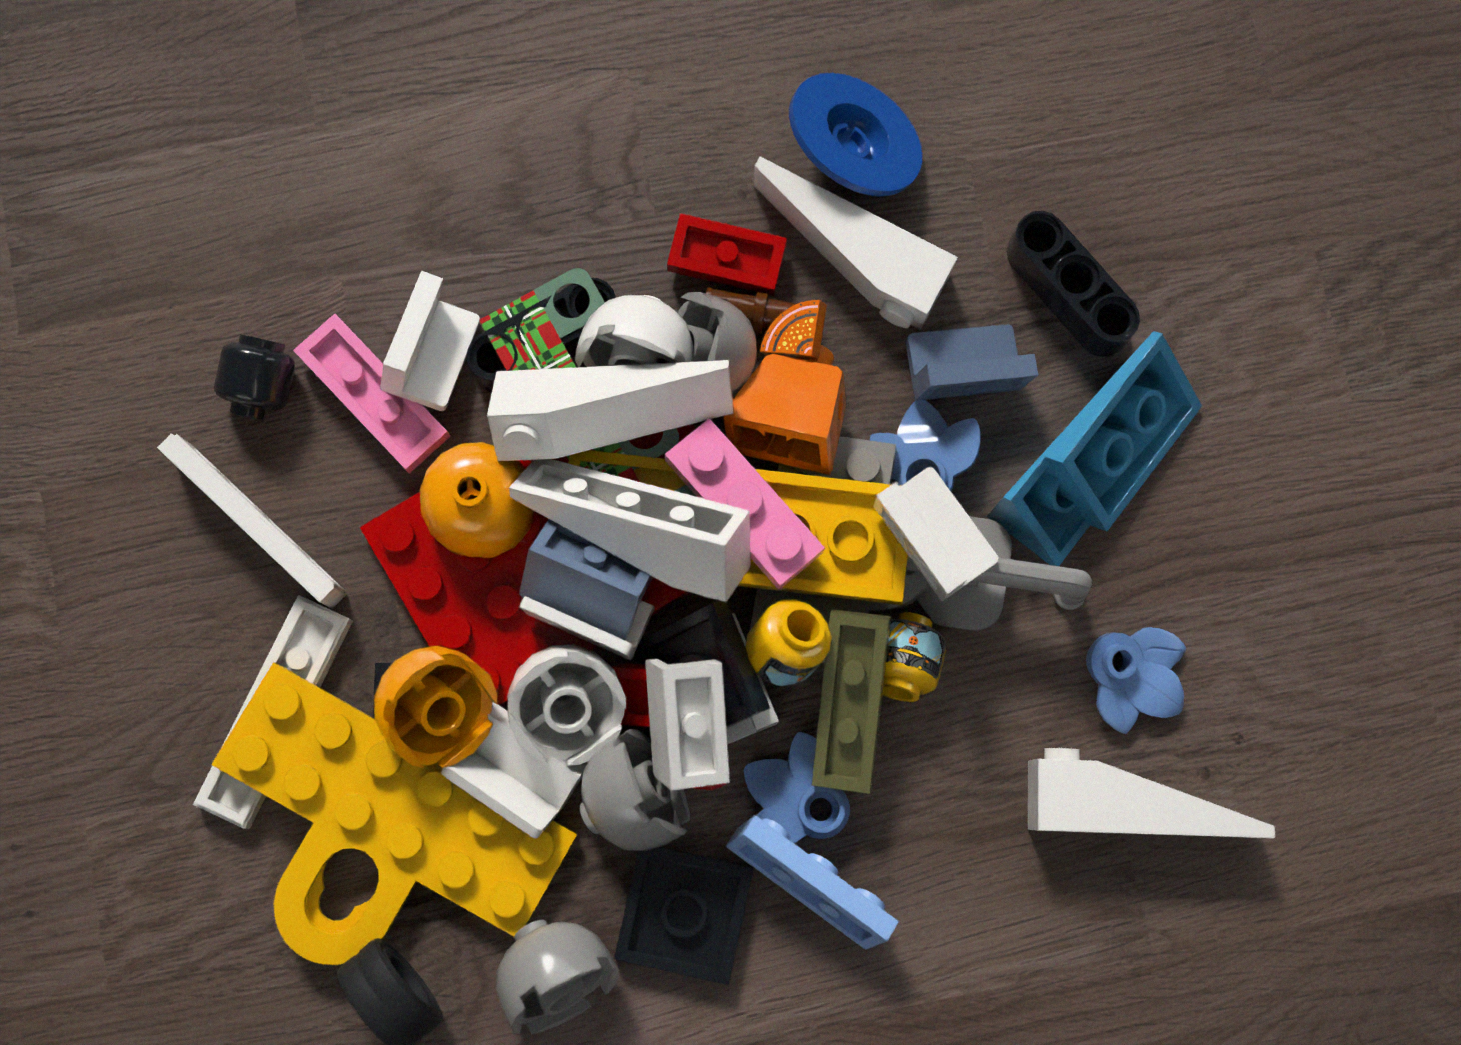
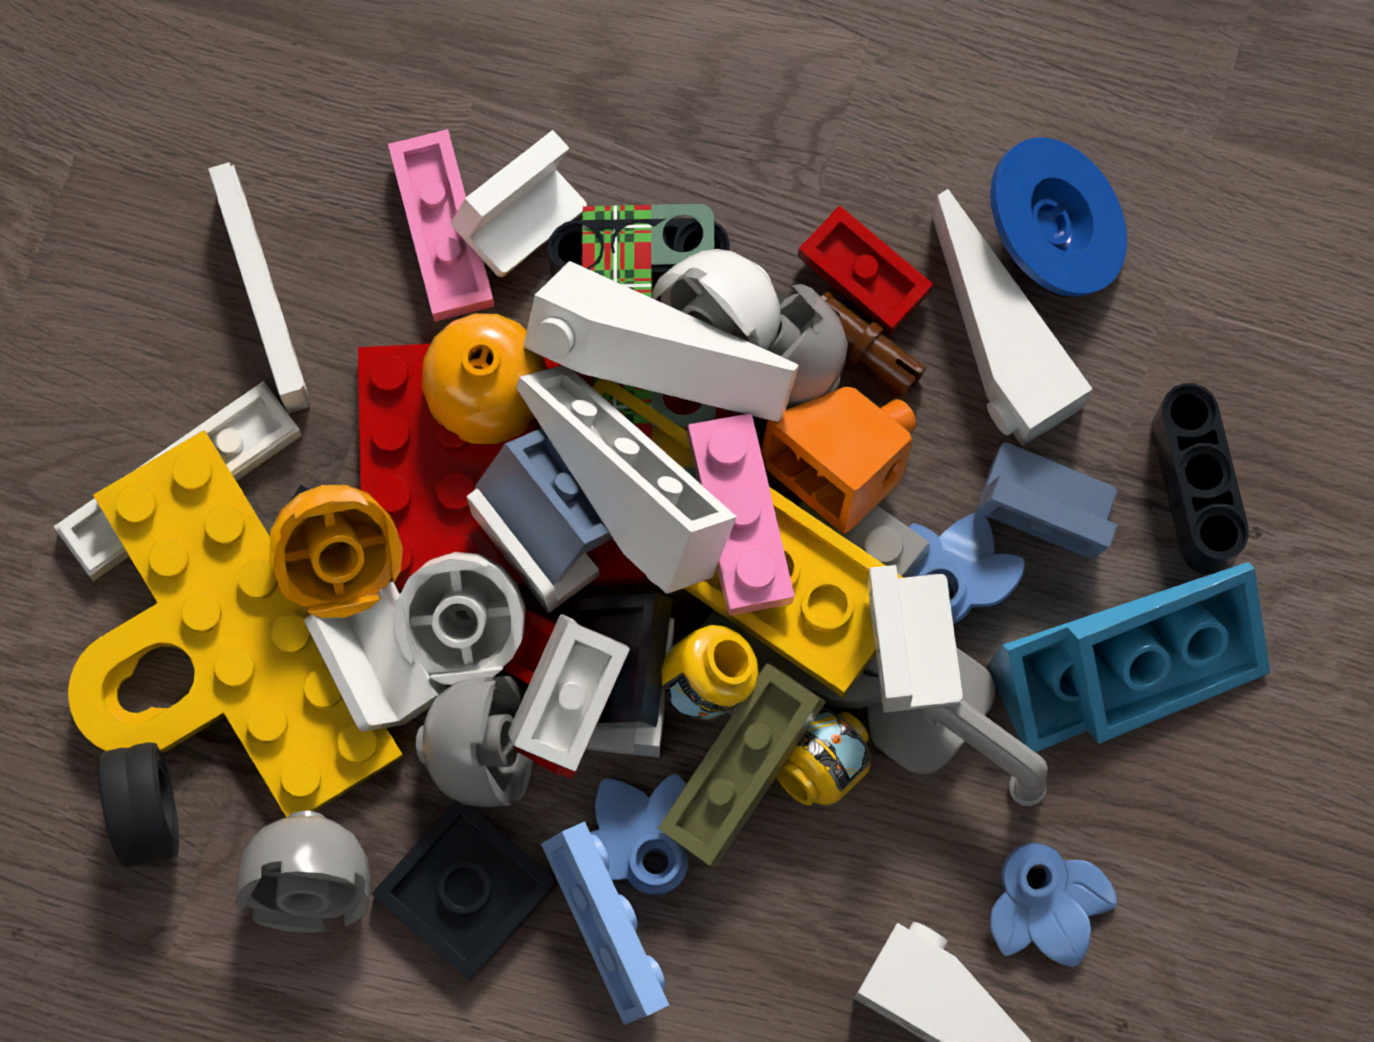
camera: 30 degrees right, 5 degrees down
(254, 376) = (337, 150): black head -> none
(797, 331) = (890, 378): orange tile -> none

